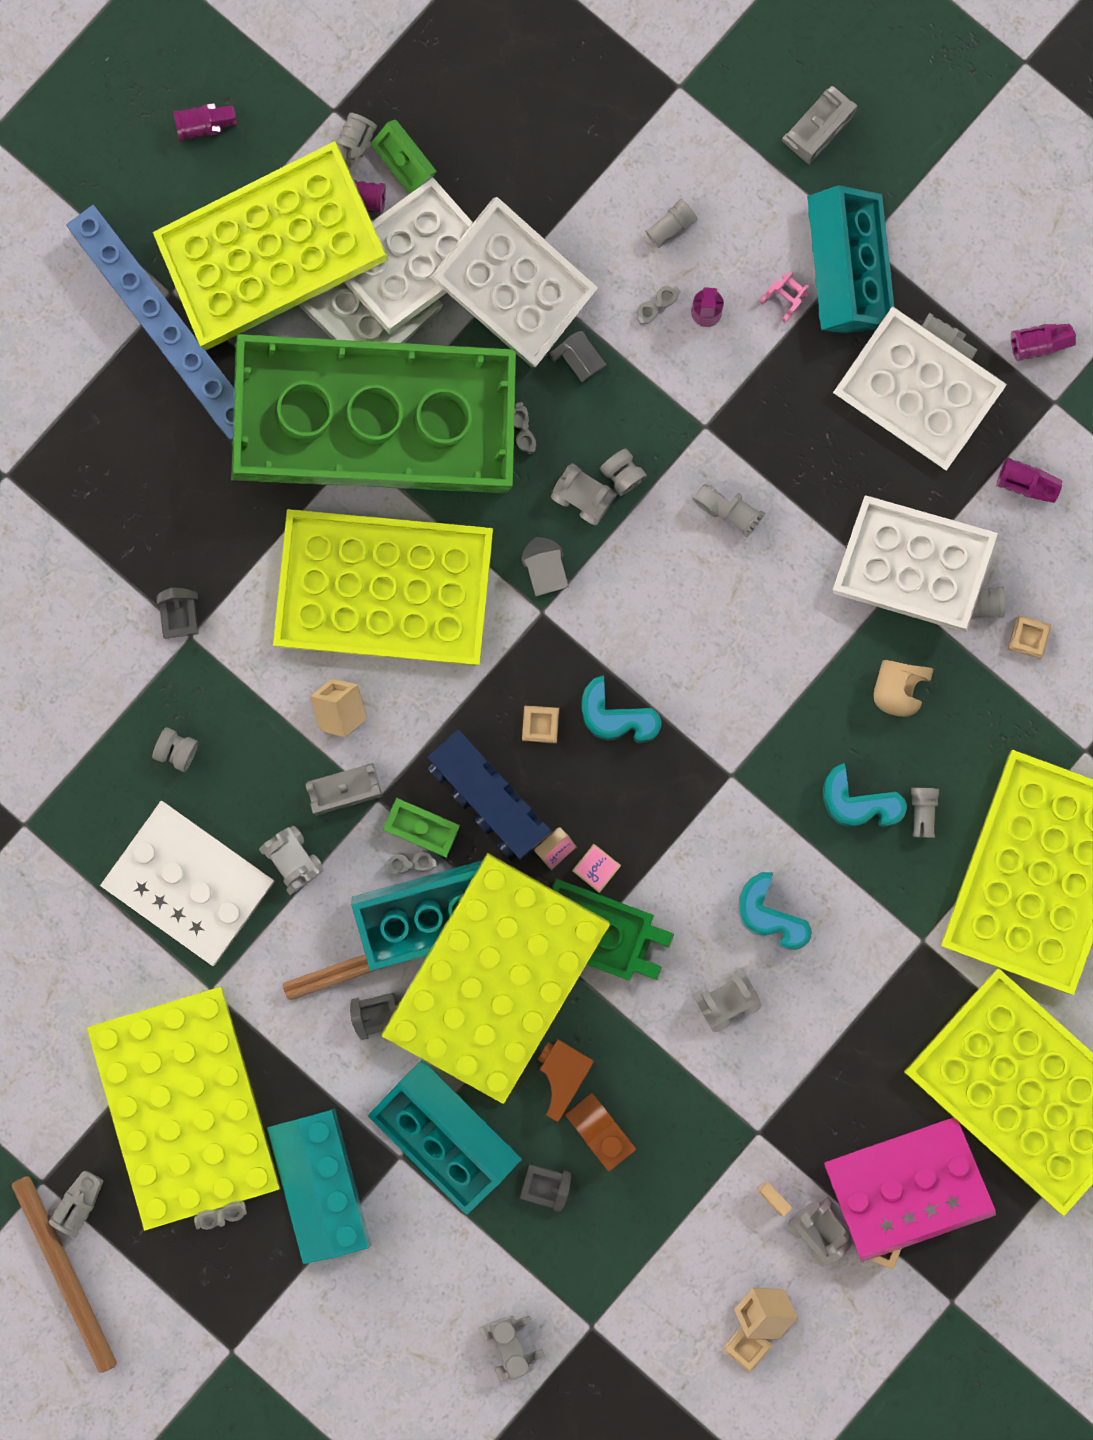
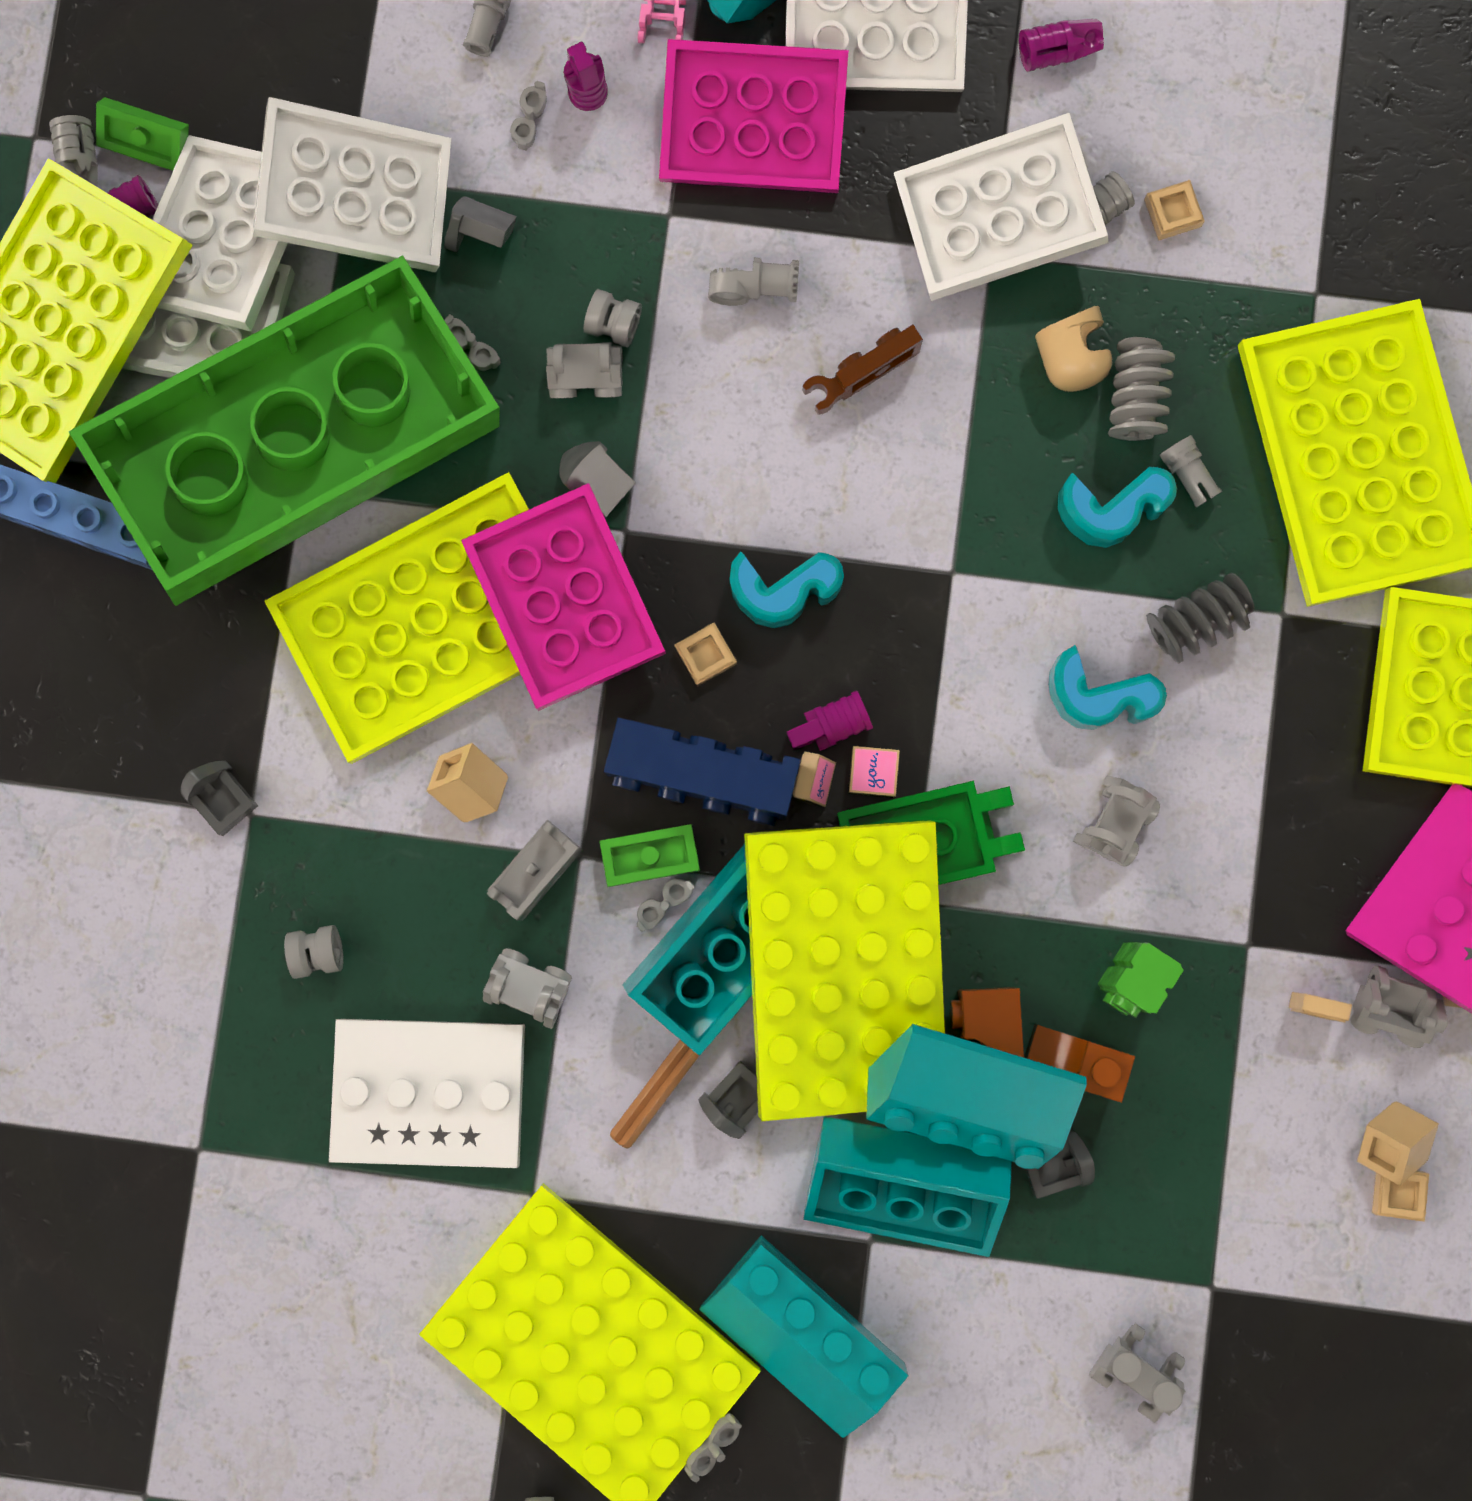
camera: 30 degrees left, 0 degrees up
(474, 631) = (563, 597): none -> dark pink plate
(520, 1106) = (973, 1097): none -> teal slope
(590, 820) = (831, 723): none -> magenta hinge
(671, 1104) = (1139, 979): none -> bright green brick
(756, 609) = (862, 370): none -> reddish brown plate
(799, 400) = (753, 115): none -> dark pink plate
(865, 909) = (1202, 616): none -> dark grey piece
(925, 739) = (1140, 389): none -> light grey piece

